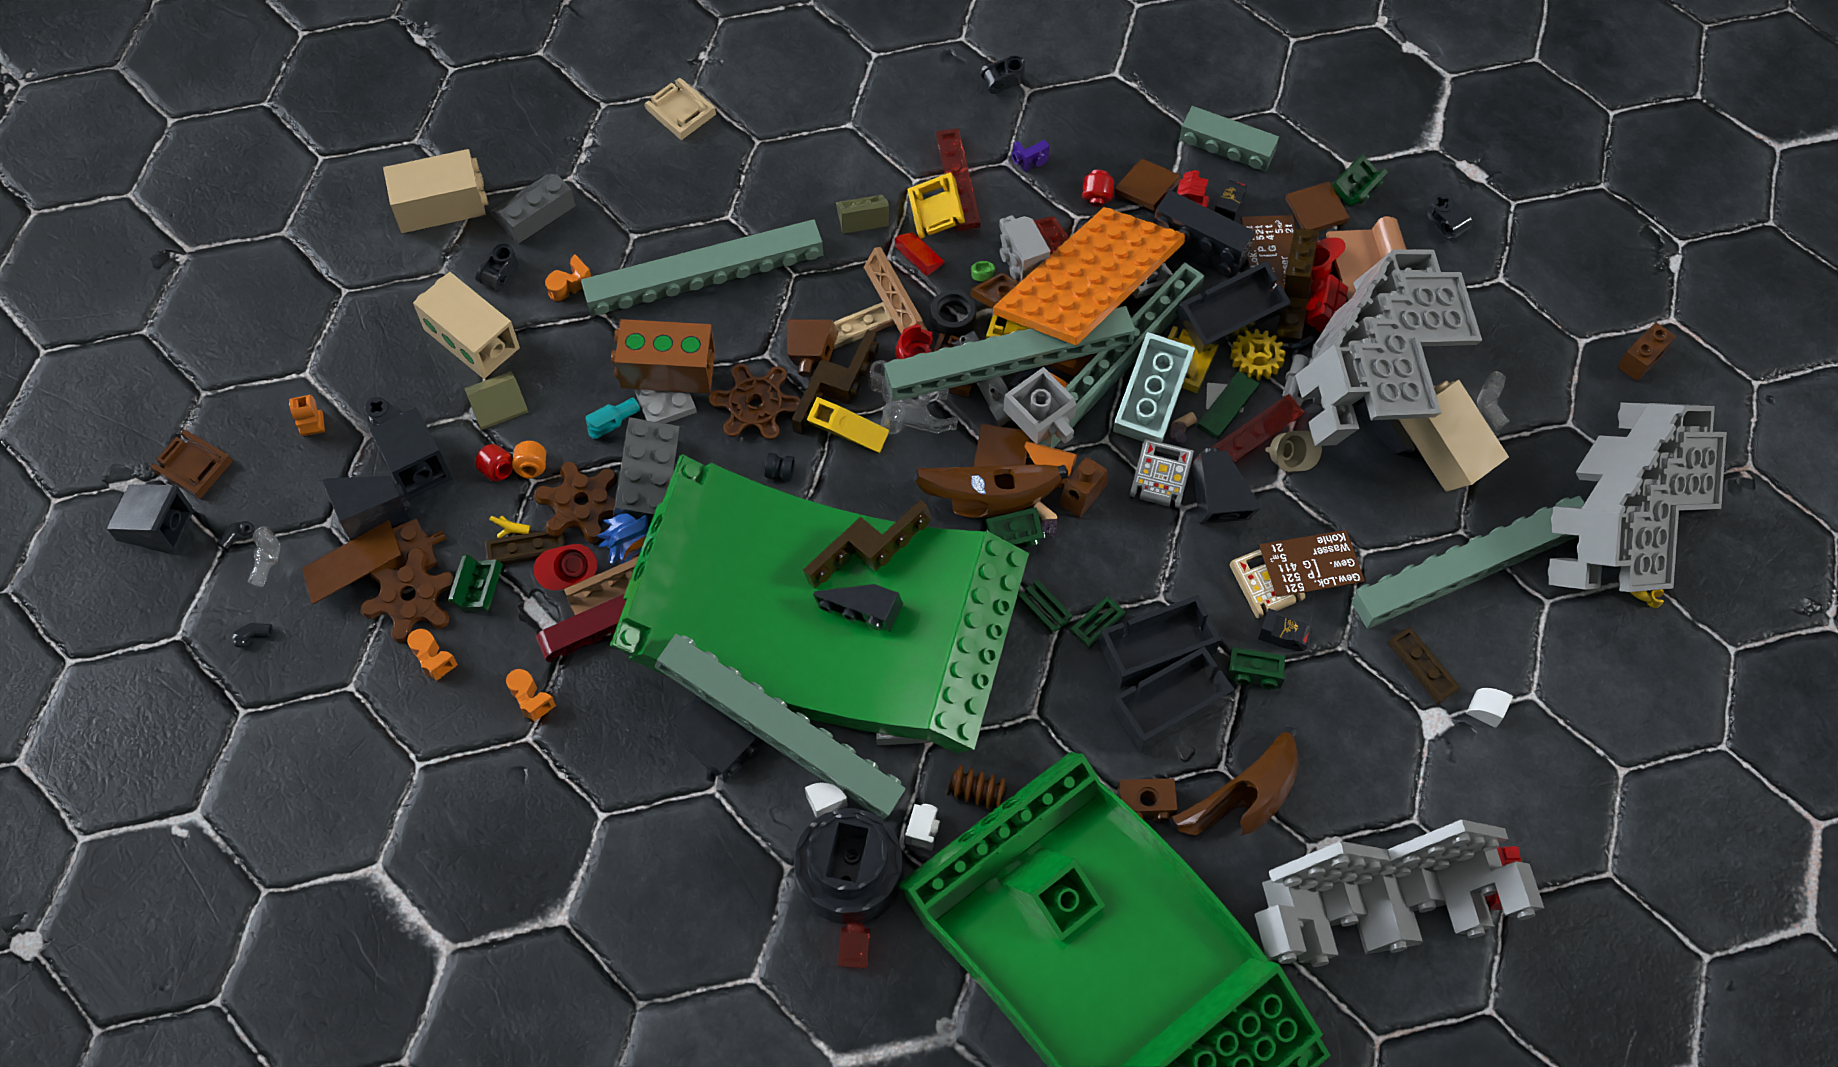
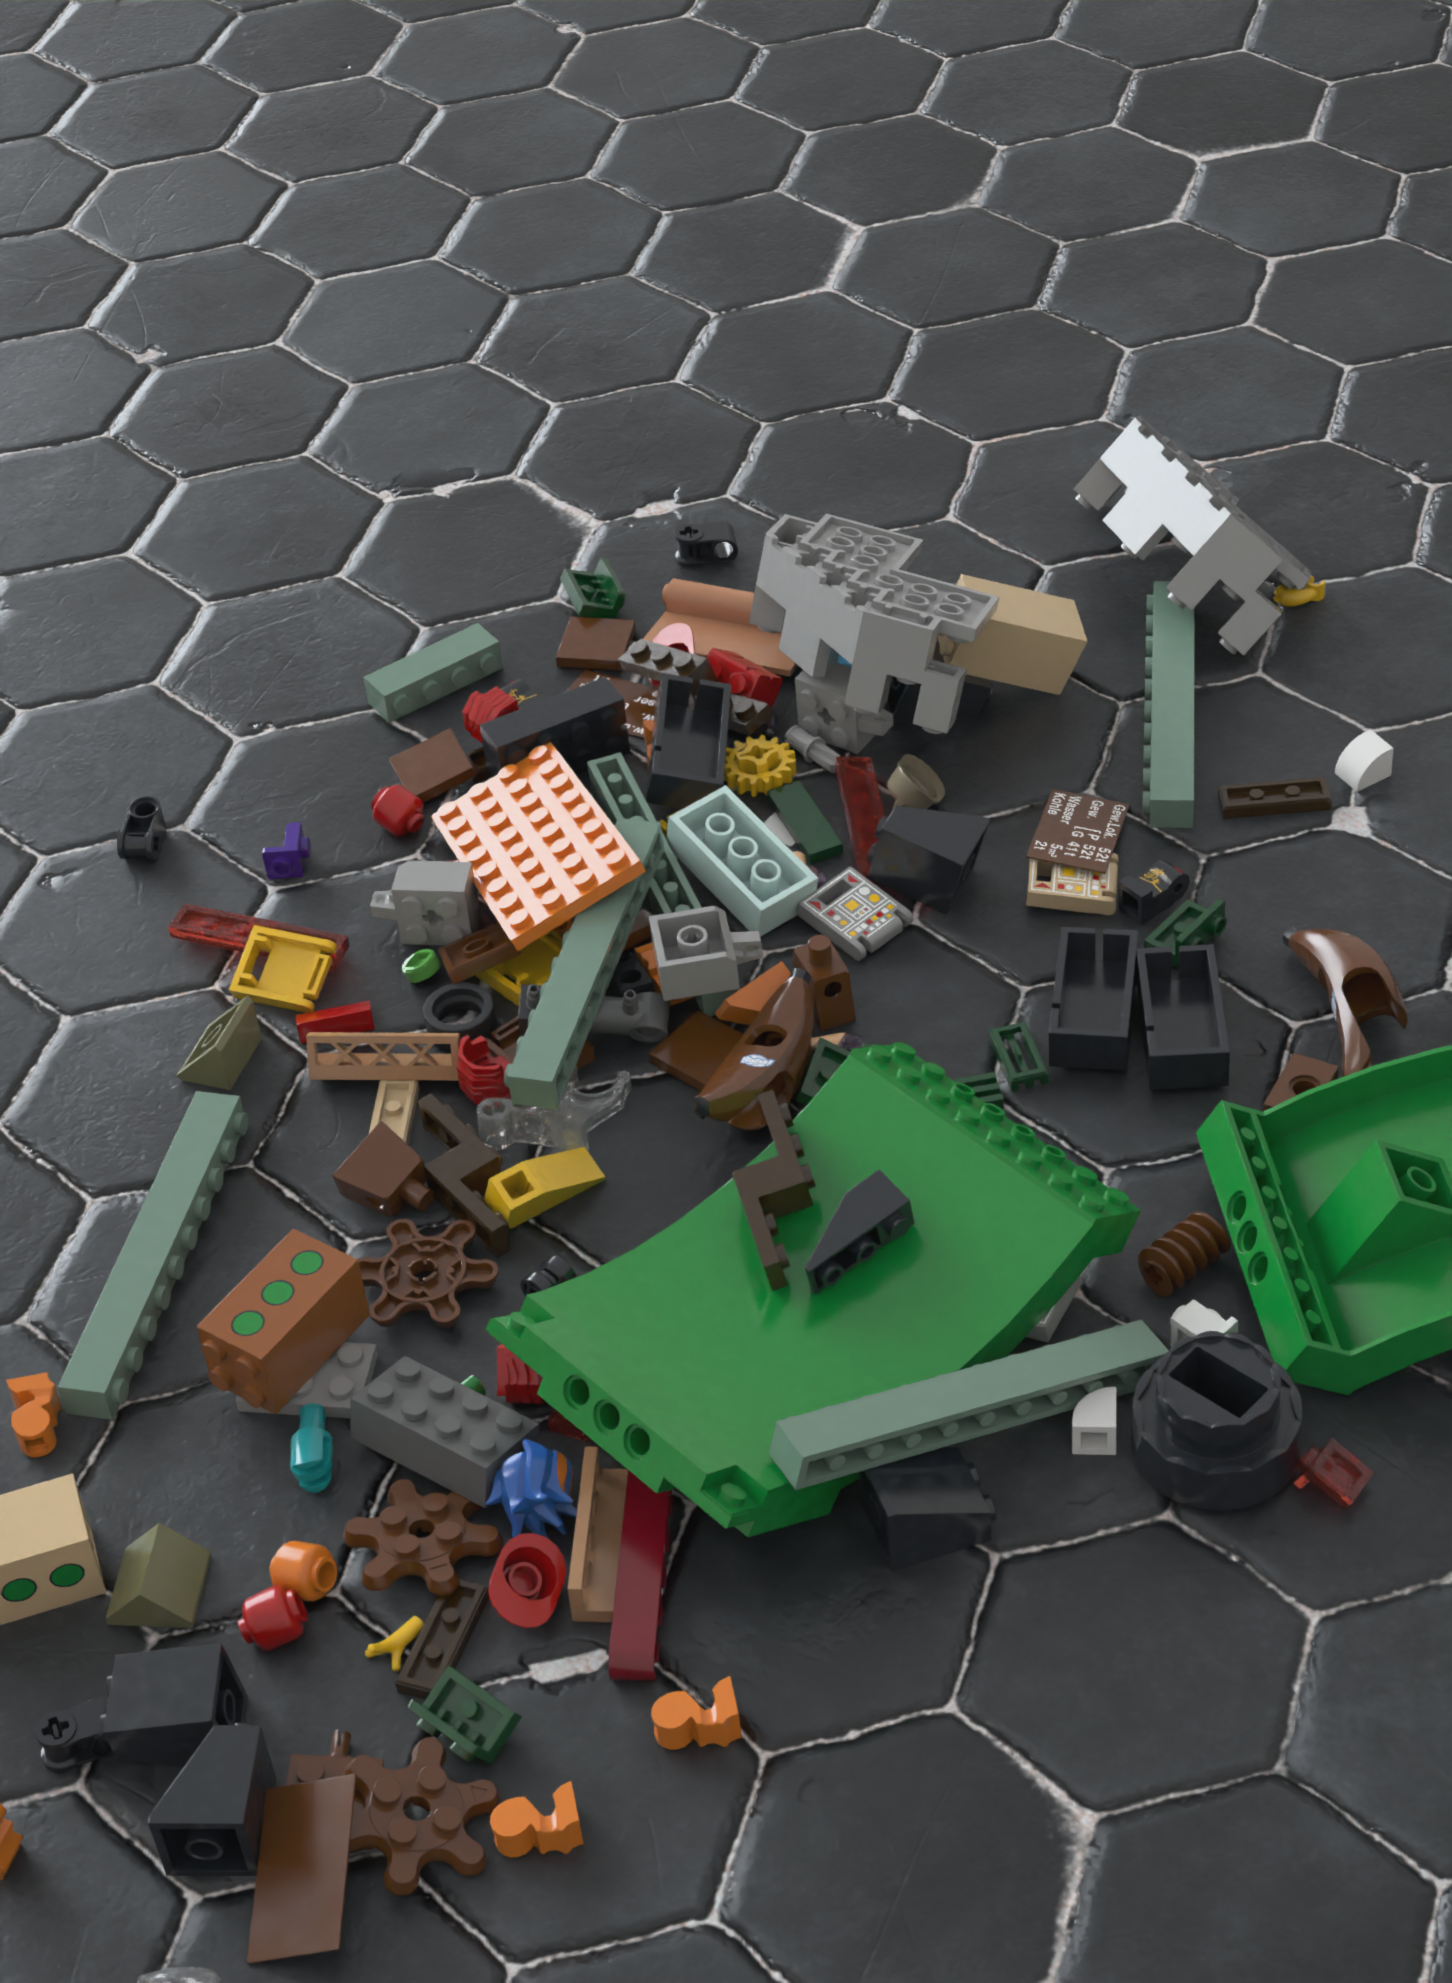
camera: 55 degrees left, 20 degrees down
(1646, 351) = (1008, 468): reddish brown brick -> none

